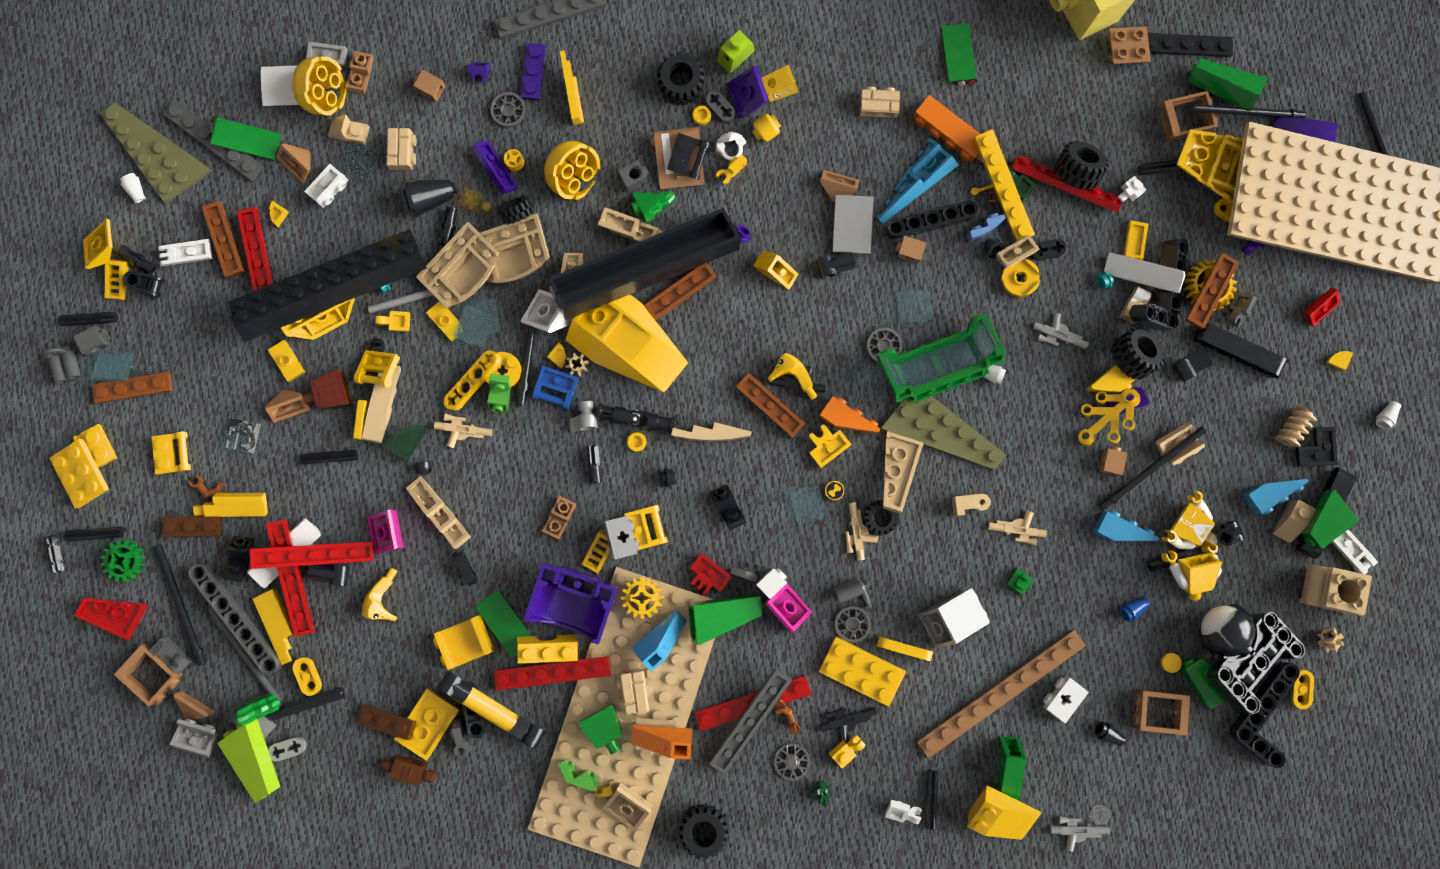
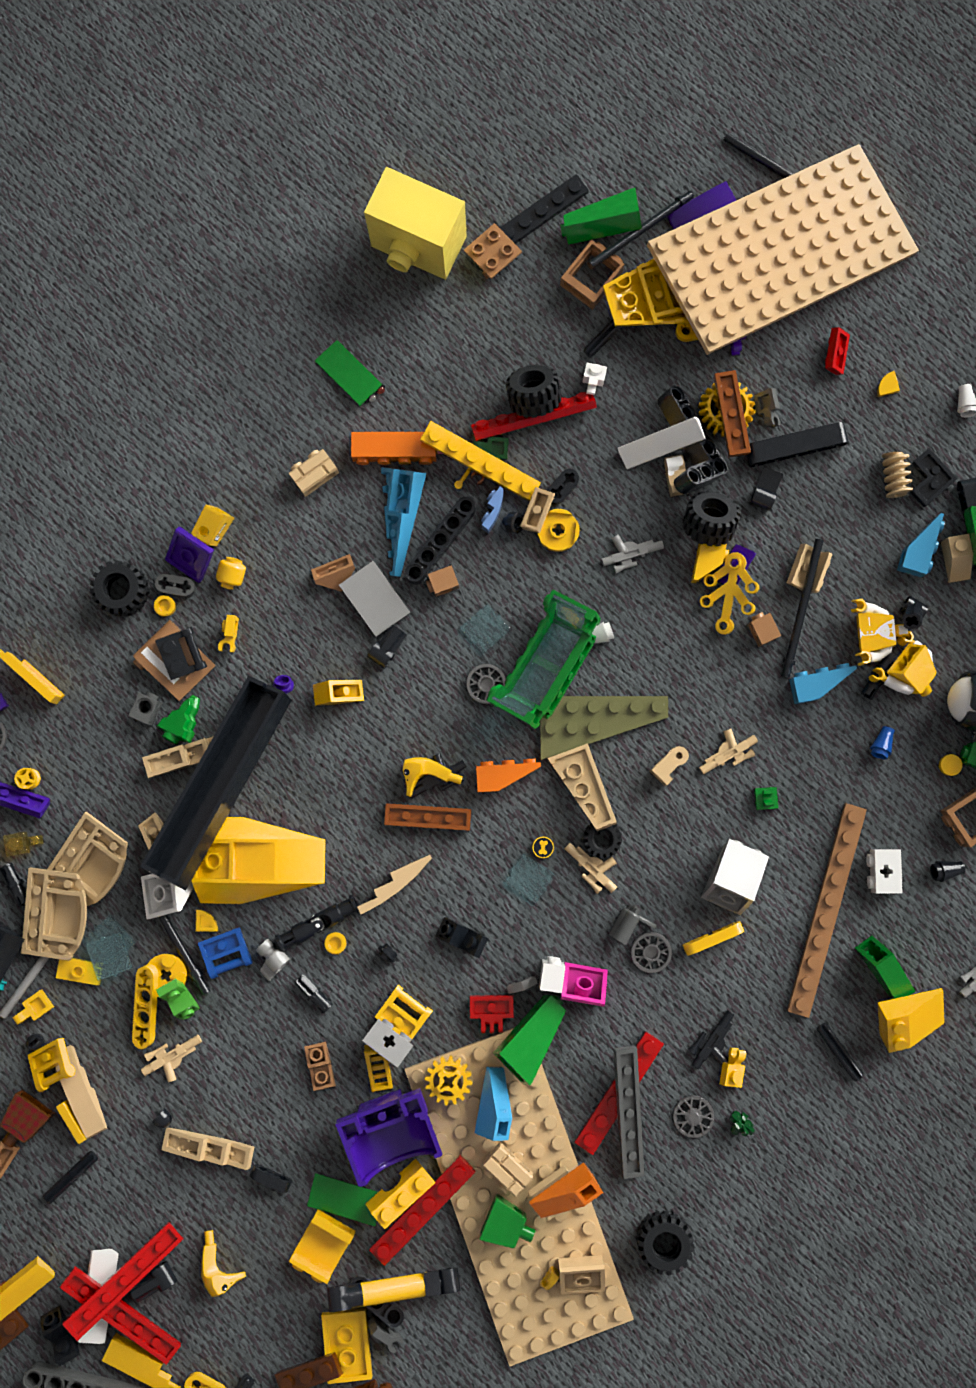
camera: 30 degrees left, 0 degrees up
(385, 531) = (174, 1203): dark pink slope -> none
(405, 441) = (128, 1109): clear green slope -> none
(516, 209) = (64, 822): black tyre -> none
(568, 161) = (76, 743): yellow cylinder -> none
(576, 359) = (224, 922): tan gear -> none
(584, 780) = (526, 1283): bright green slope -> none
(680, 291) = (268, 779): dark orange plate -> none
(727, 137) = (204, 607): white piece -> none
(737, 50) = (149, 525): lime torso -> none
(793, 726) = (671, 1085): dark orange arm -> none
(828, 446) = (507, 812): yellow plate -> none
(862, 671) = (692, 987): yellow plate -> none
(900, 812) = (822, 1084): white plate -> none
(1104, 281) = (633, 475): teal plate -> none
(1135, 240) = (632, 418): yellow tile -> none

